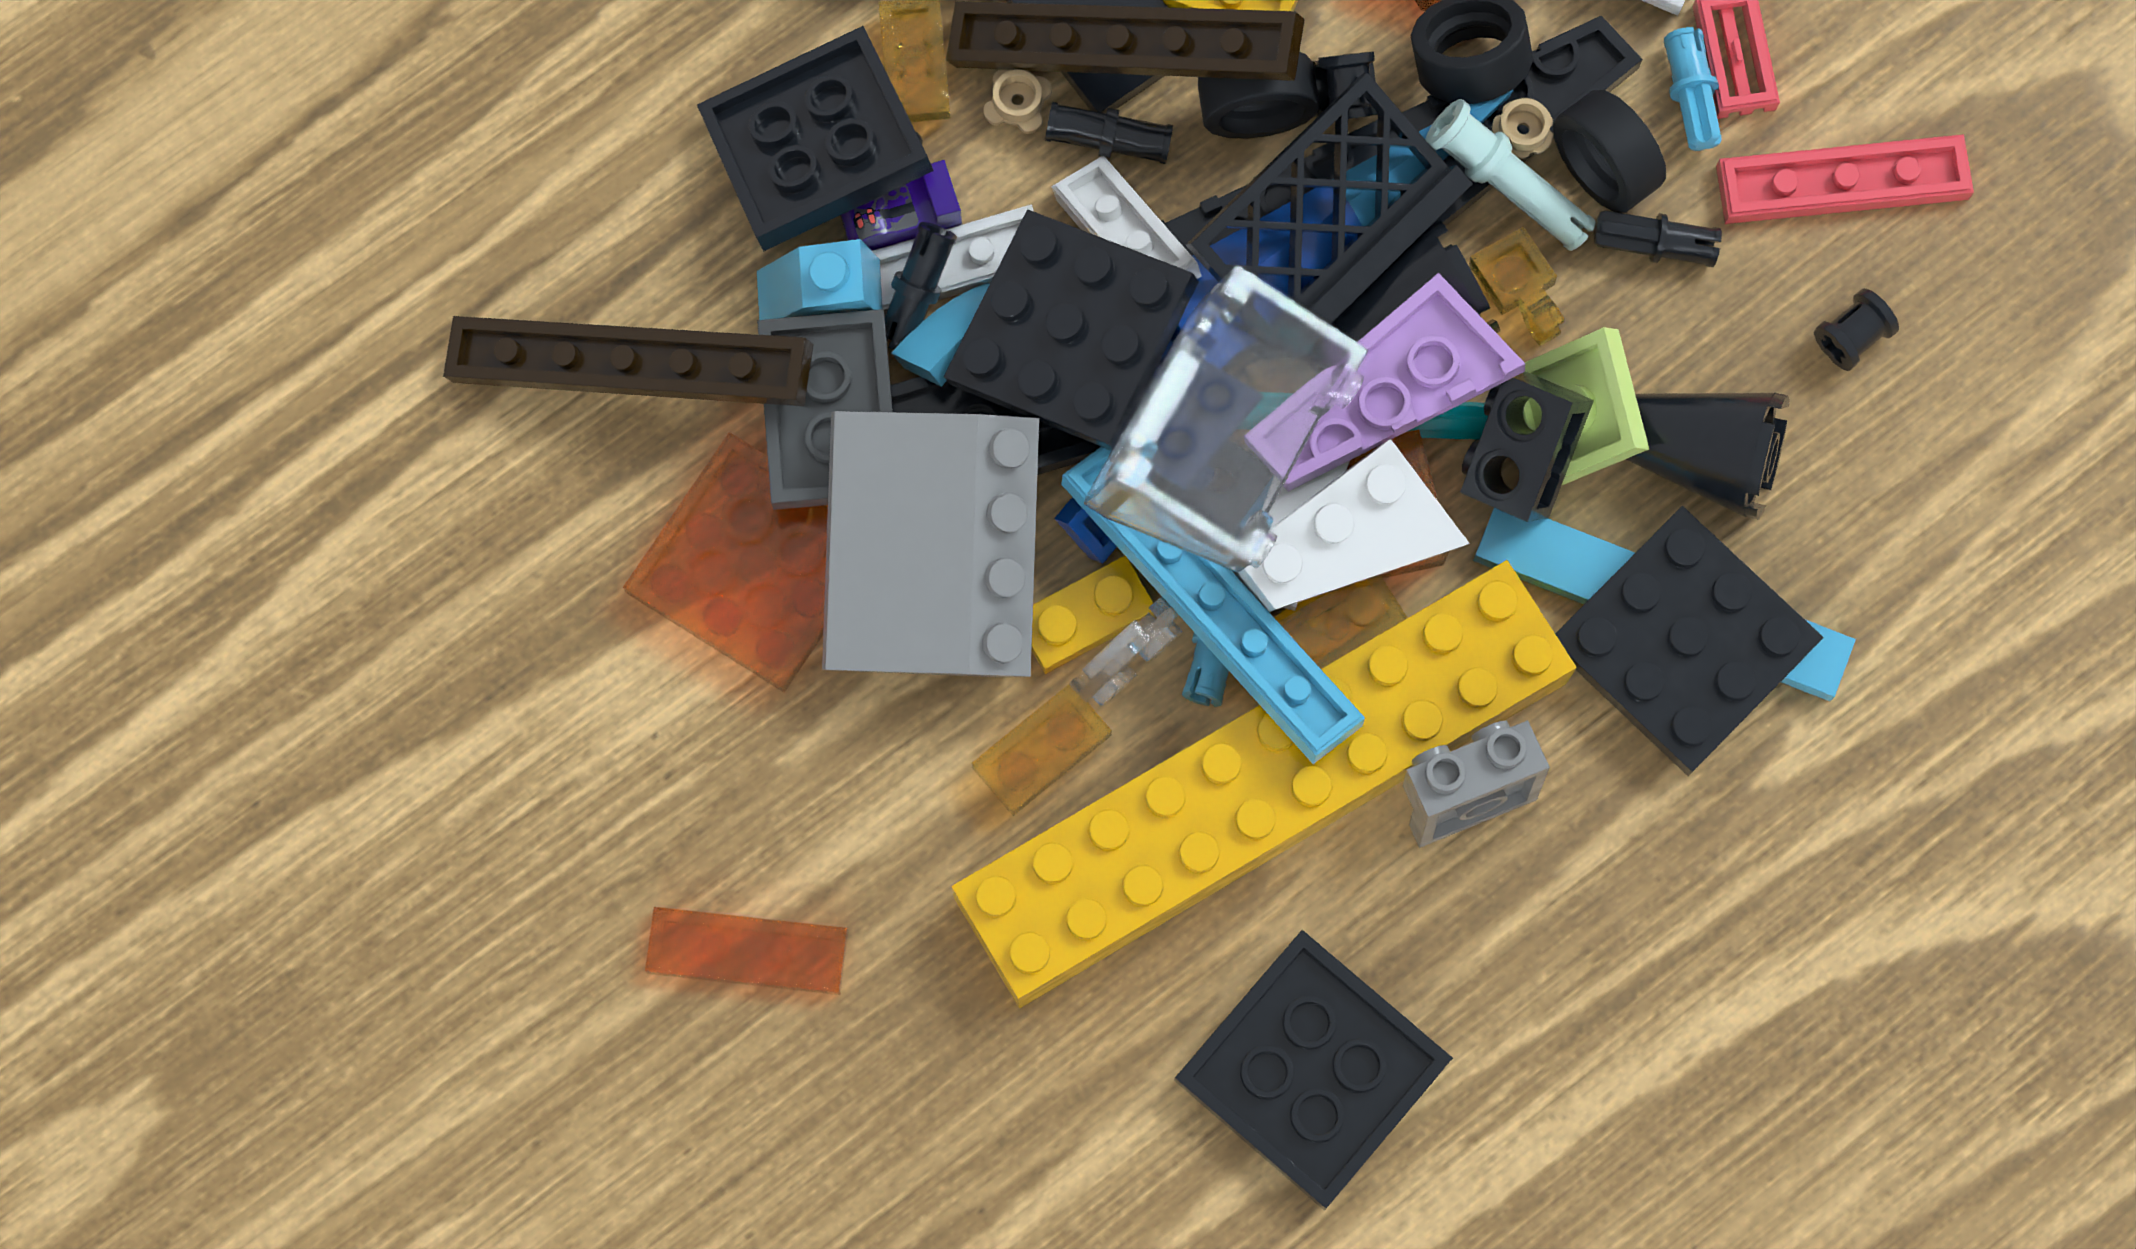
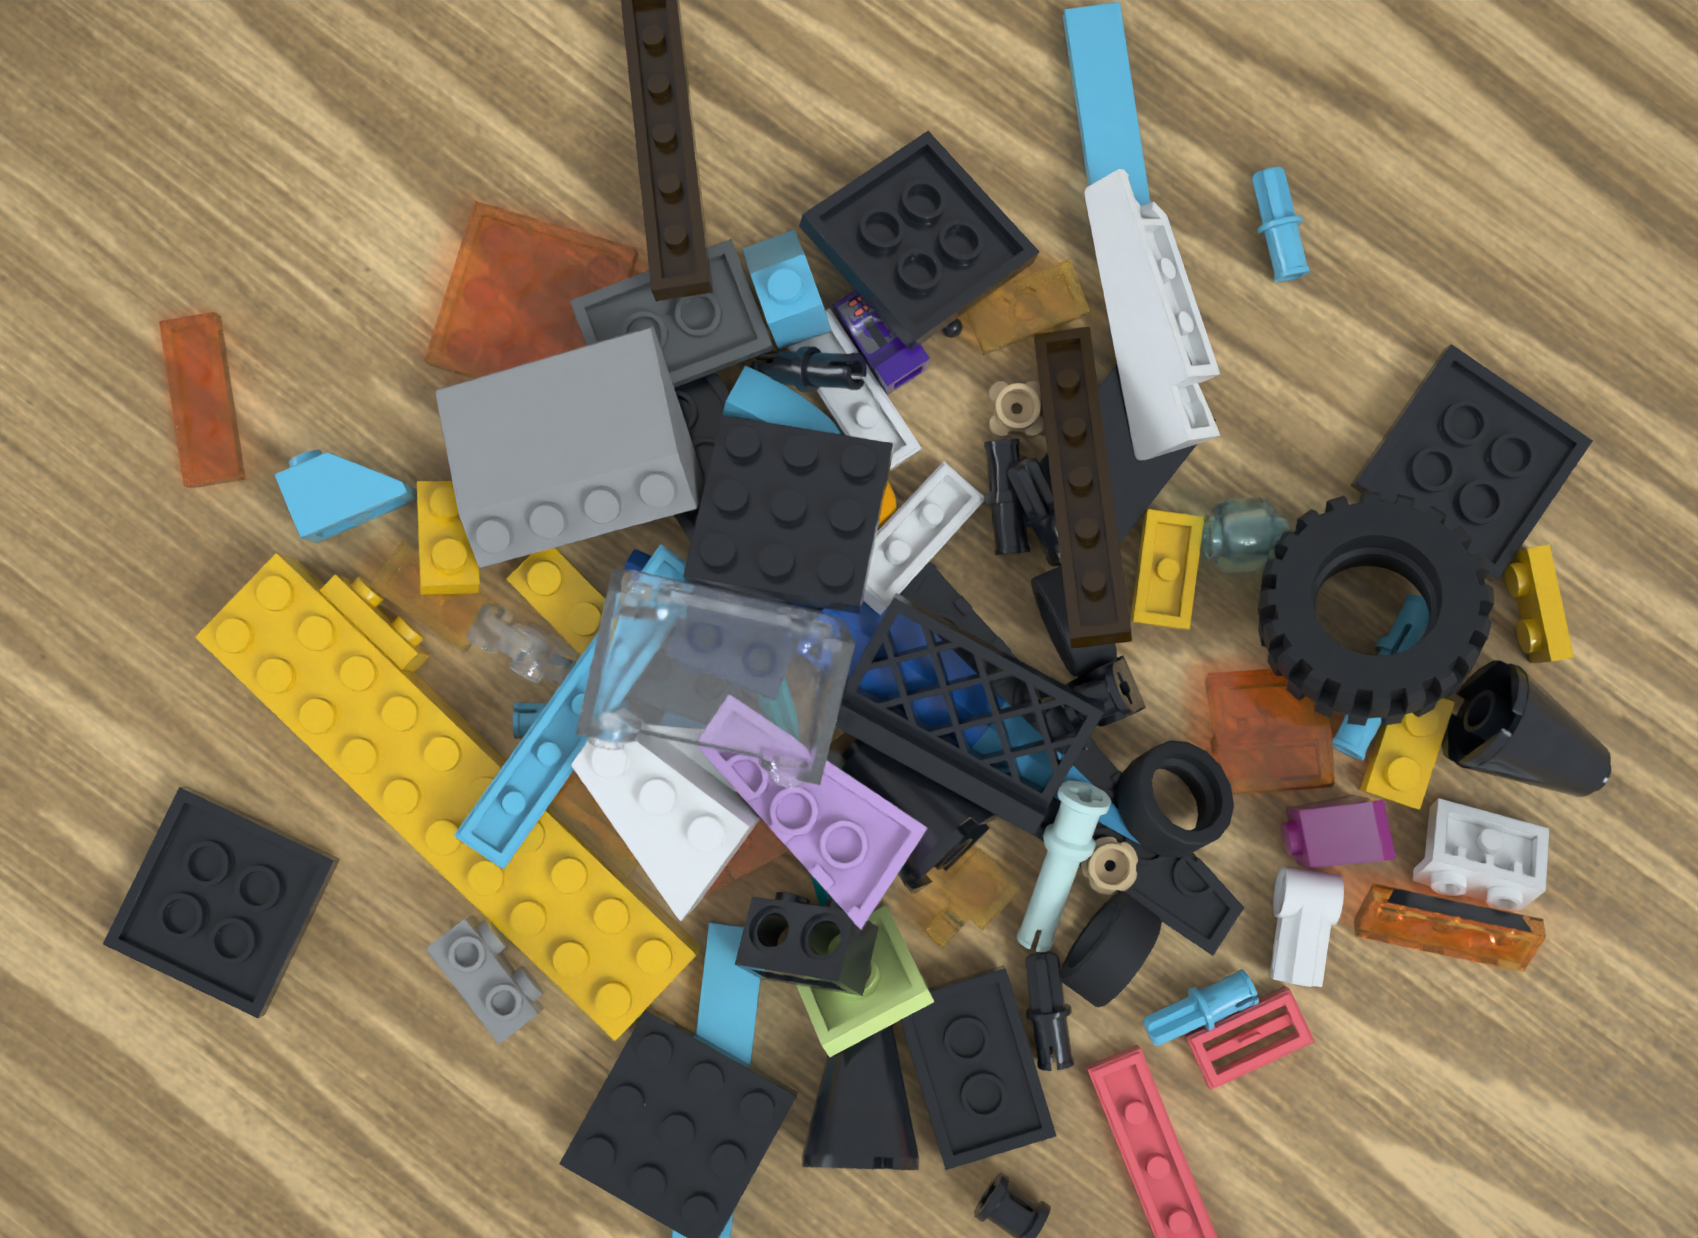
camera: 75 degrees right, 10 degrees up
(898, 819) = (336, 495): none -> medium azure slope
(983, 713) = (444, 549): none -> yellow plate
(1071, 796) = (360, 604): none -> yellow plate
(1136, 95) = (1037, 500): none -> black axle
(1702, 324) = (977, 1069): none -> black plate

